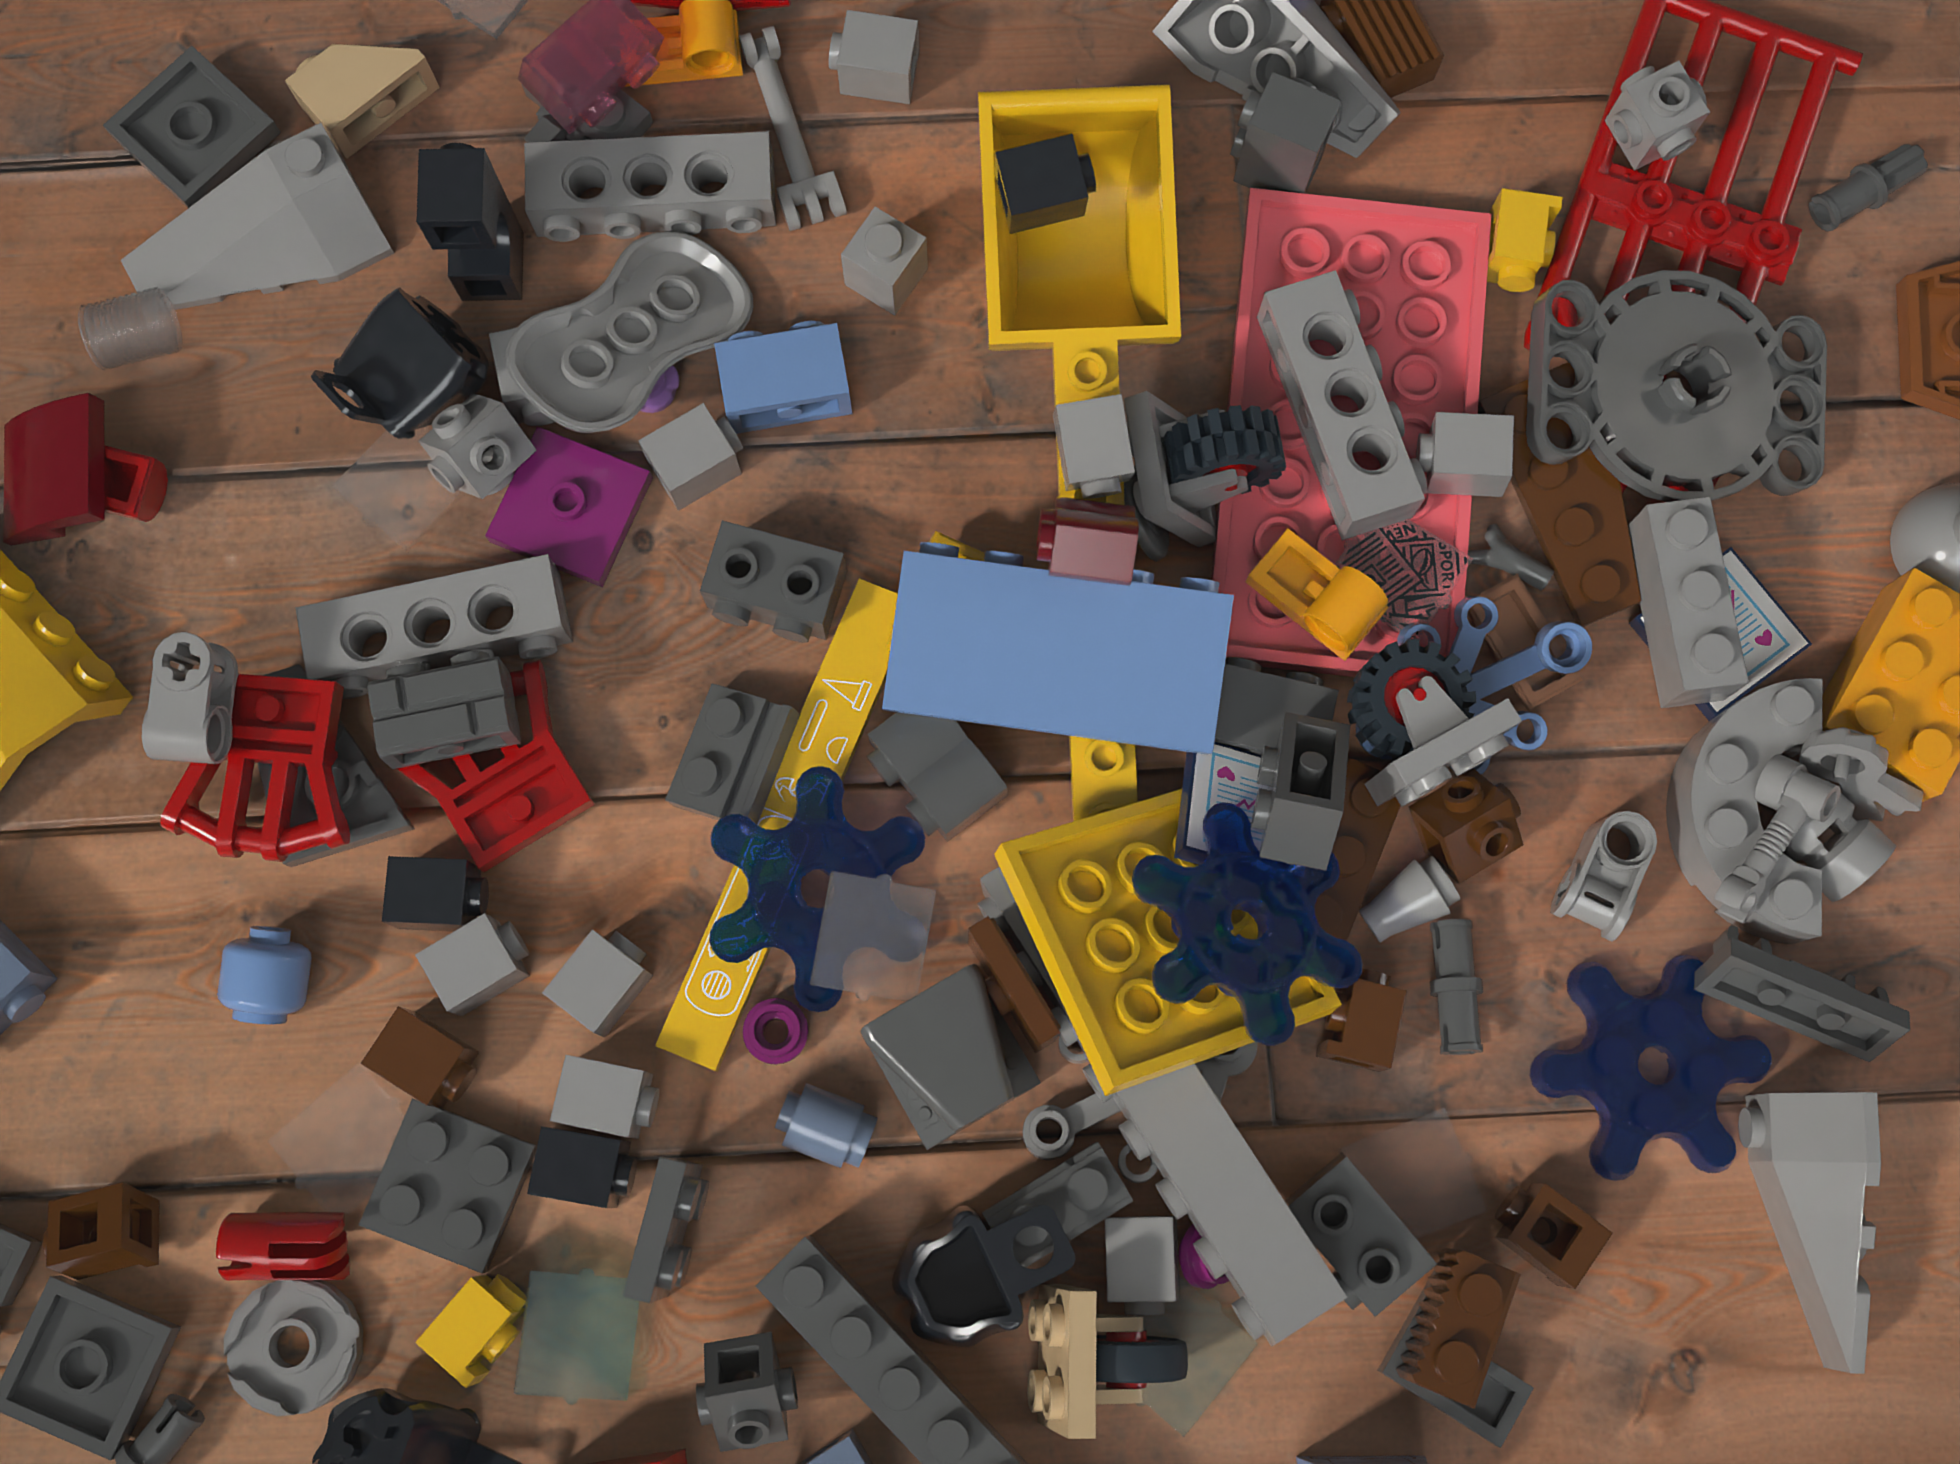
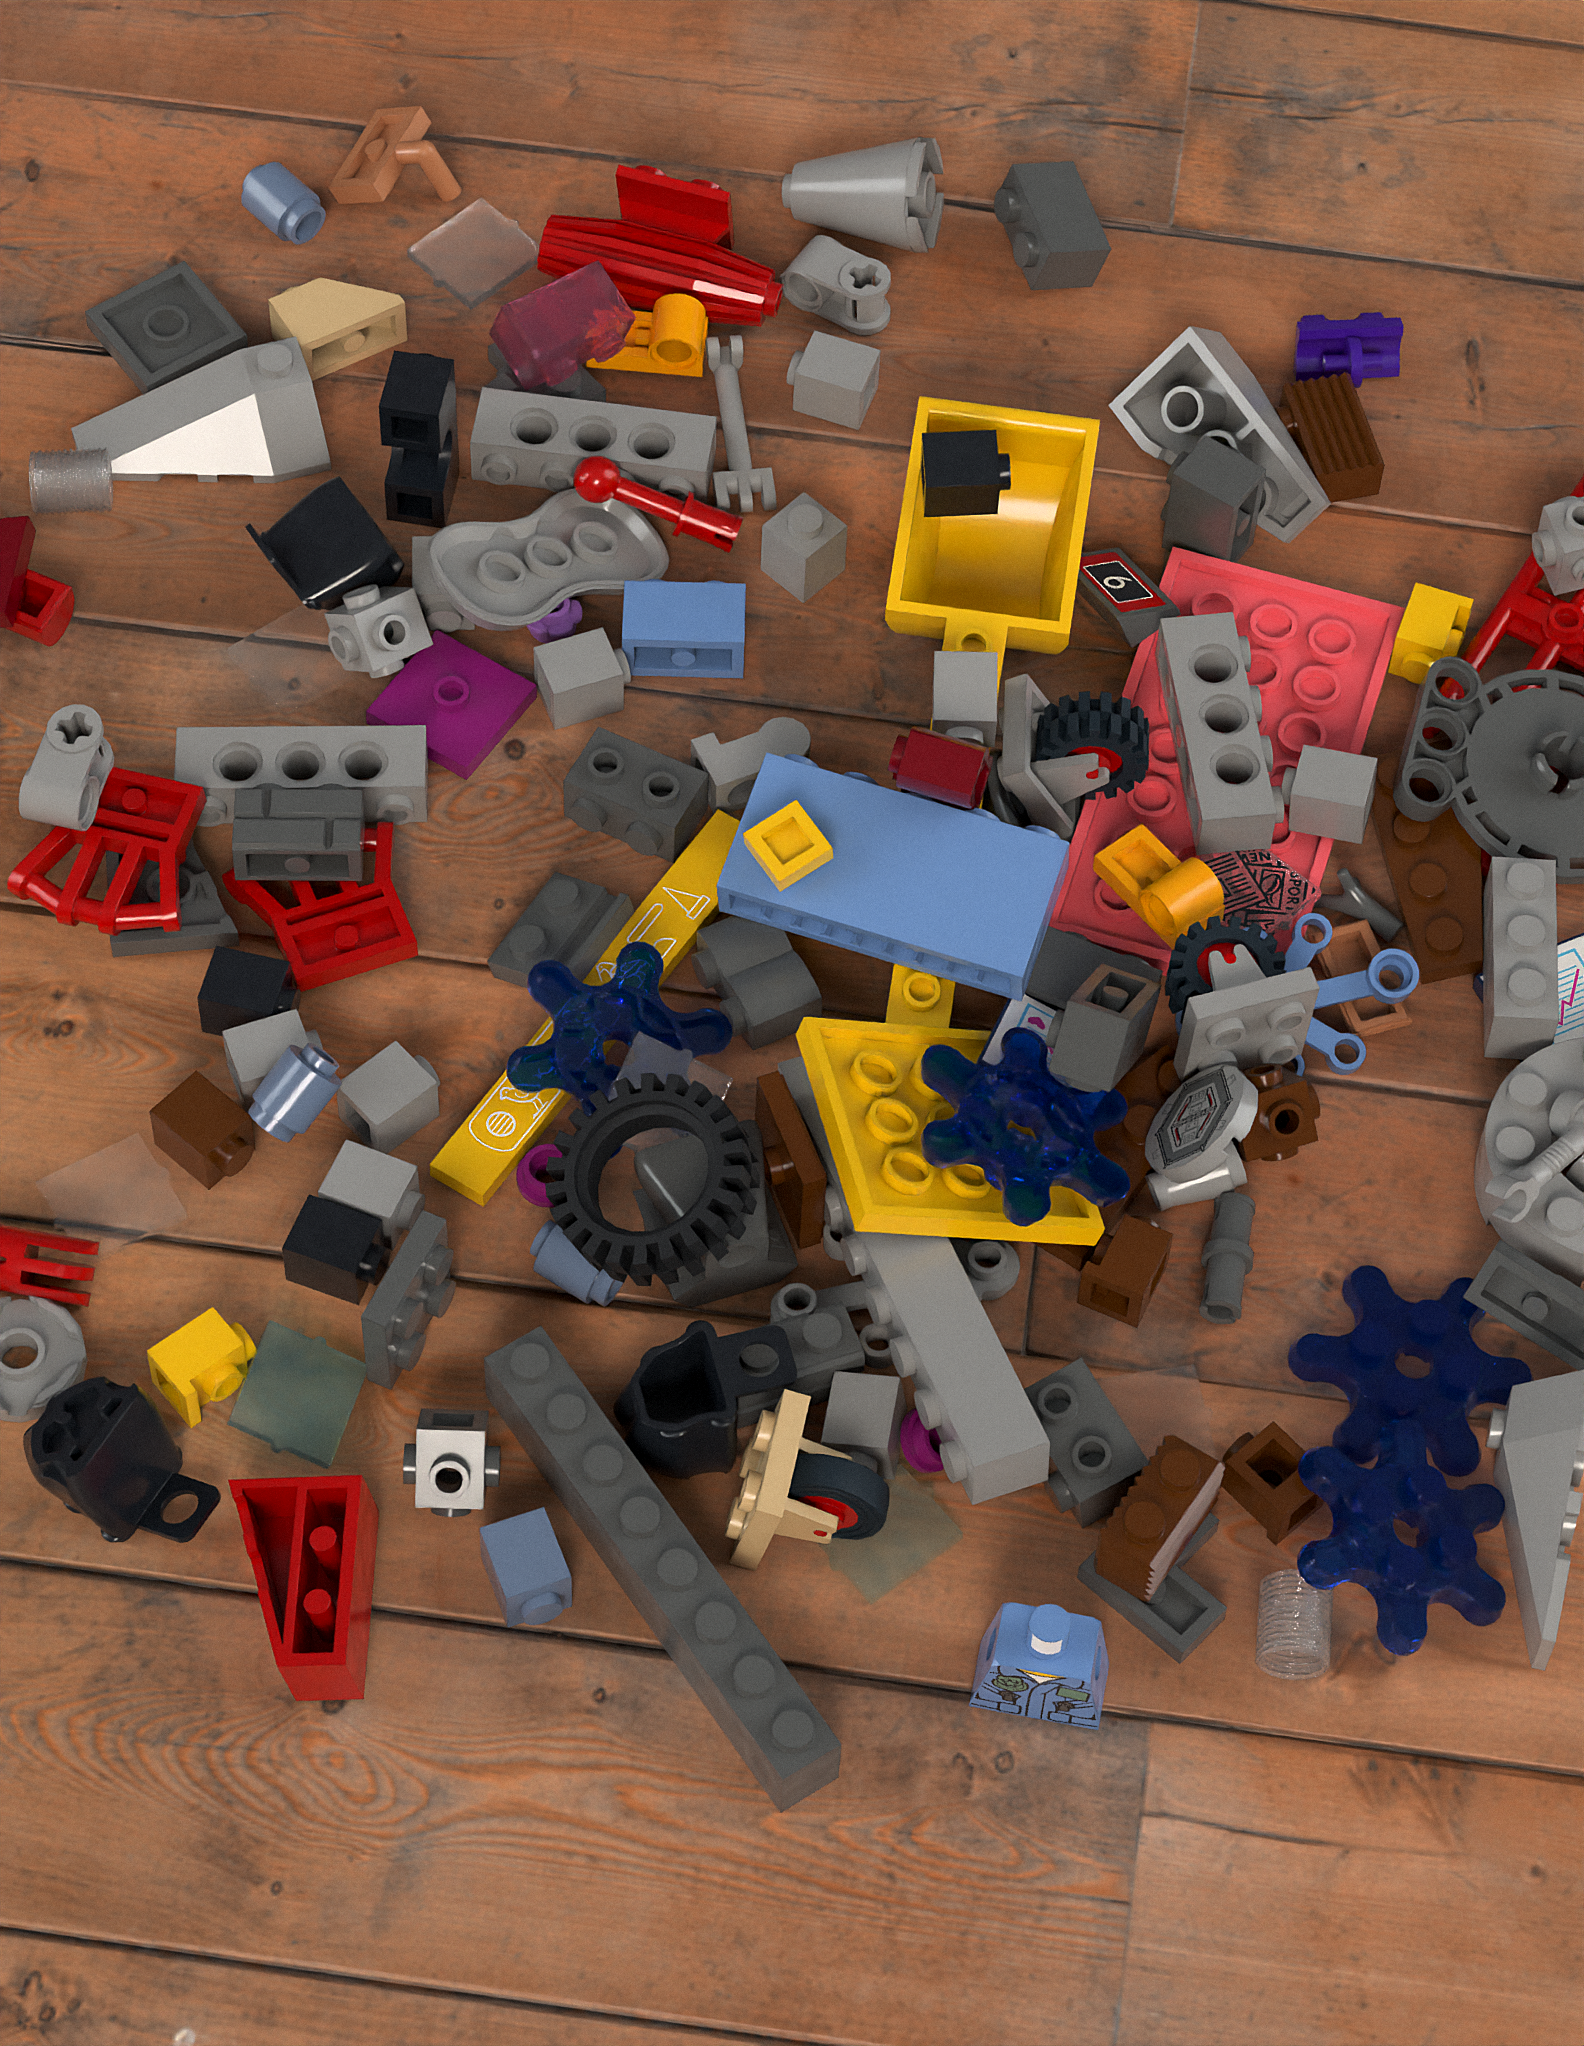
camera: 10 degrees right, 20 degrees down
(264, 976) = (70, 1035): medium blue head -> none
(449, 1186) = (201, 1247): dark grey plate -> none
(502, 1015) = (295, 1091): none -> sand blue brick
(666, 230) = (600, 480): none -> red pin
(812, 1086) = (701, 1227): none -> black tyre
(884, 523) = (737, 763): none -> light grey leg
(949, 660) = (788, 845): none -> yellow plate
(1218, 255) = (1123, 594): none -> slope
(1416, 869) = (1200, 1122): none -> light grey tile
(1600, 885) = (1391, 1191): light grey piece -> none
(1601, 1391) = (1293, 1627): none -> clear piece
(1653, 1261) = (1369, 1552): none -> clear blue plate

